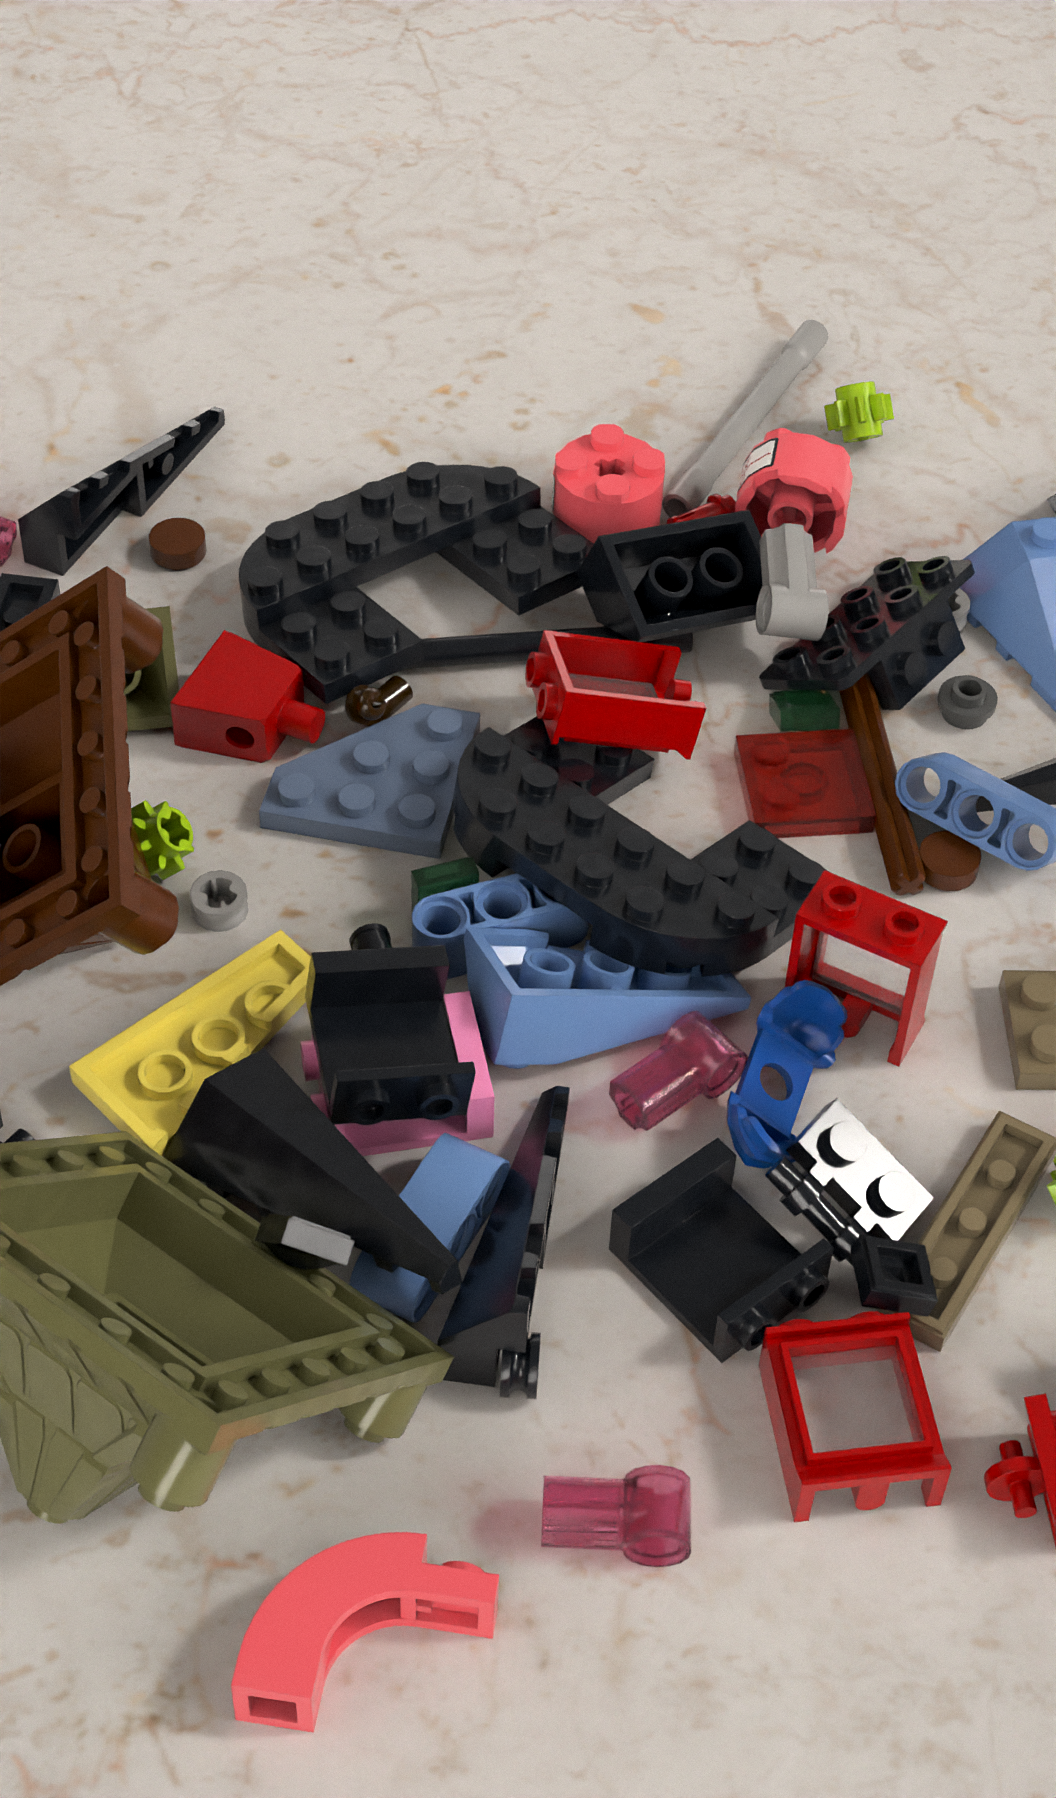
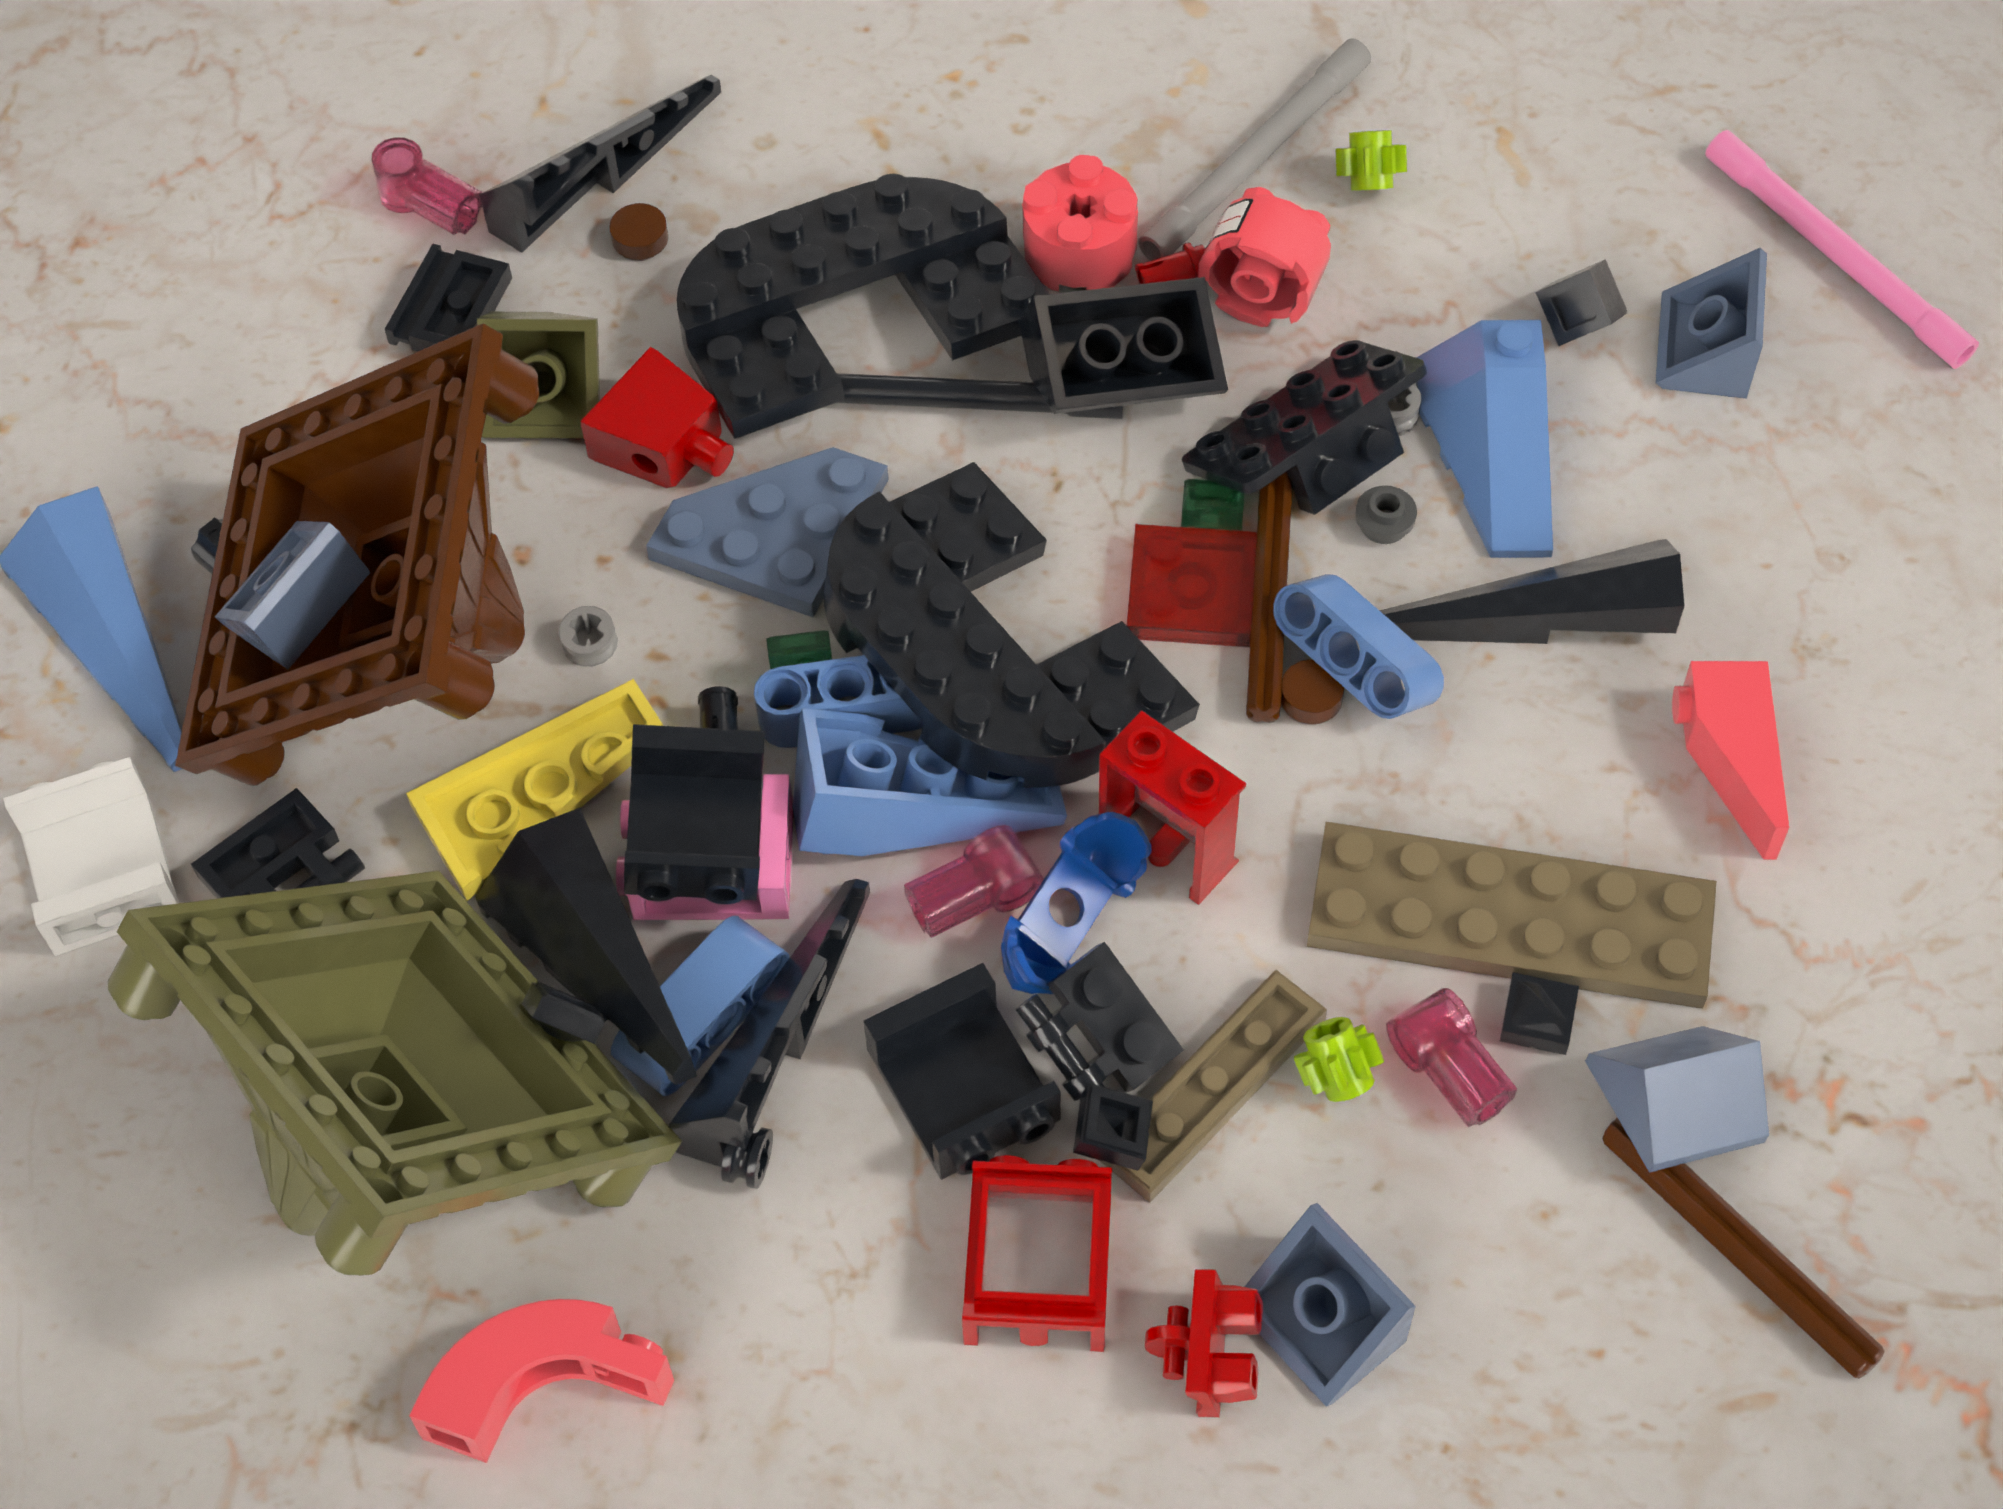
camera: 15 degrees right, 10 degrees up
(163, 836) = (539, 565): lime gear -> none
(372, 705) = (783, 444): dark brown arm -> none
(613, 693) = (1015, 466): red window -> none
(640, 1515) = (815, 1318): clear pink piece -> none
(789, 597) = (1221, 384): light grey piece -> none

